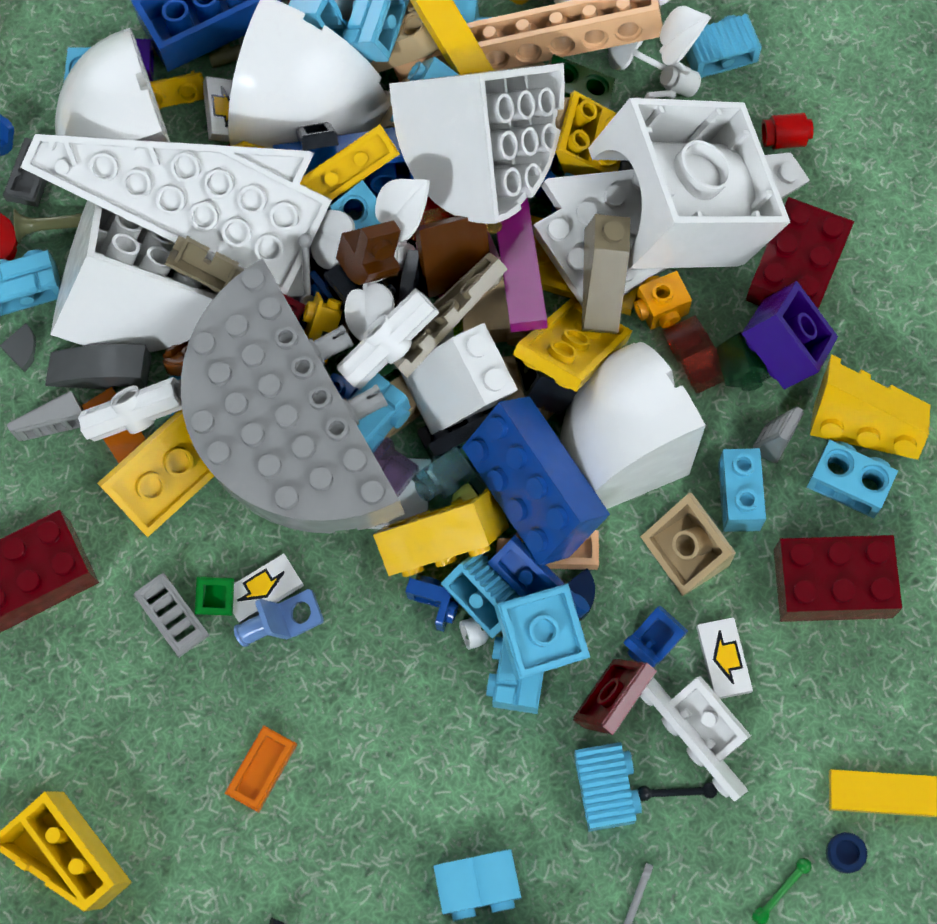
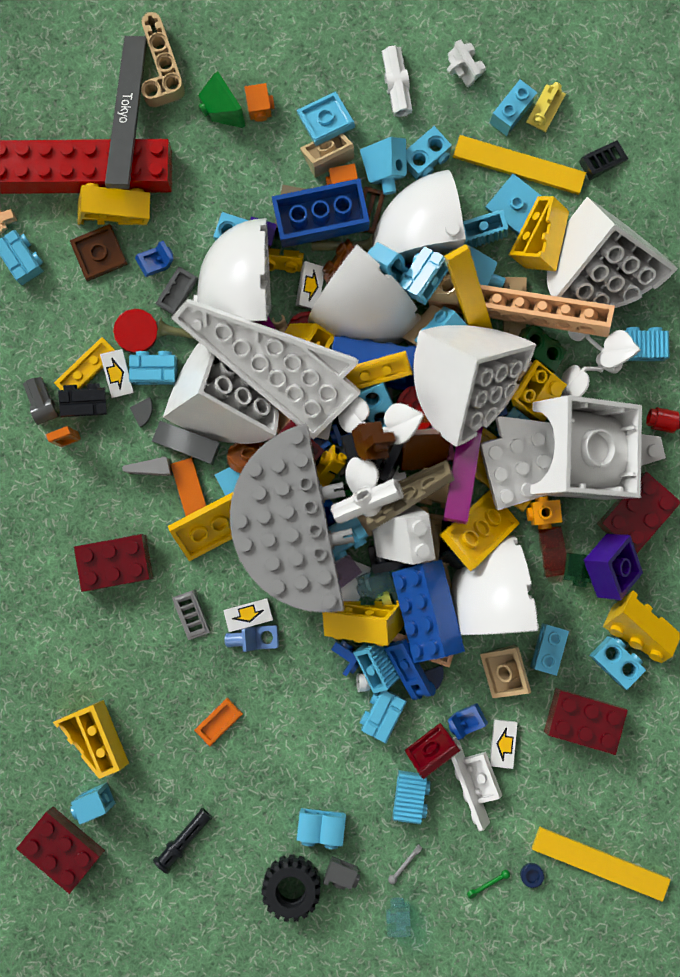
camera: 15 degrees right, 15 degrees up
(131, 410) = (200, 484): white piece -> none
(189, 260) = (264, 408): dark tan hinge -> none
(214, 595) = (219, 612): green slope -> none
(305, 242) = (326, 445): light grey hinge -> none
(316, 136) = (363, 346): black tile -> none
(542, 631) = (402, 702): medium azure plate -> none
(604, 272) = (514, 492): dark tan slope -> none
(708, 790) = (431, 806): black hinge -> none
(778, 434) = (583, 623): light grey slope -> none

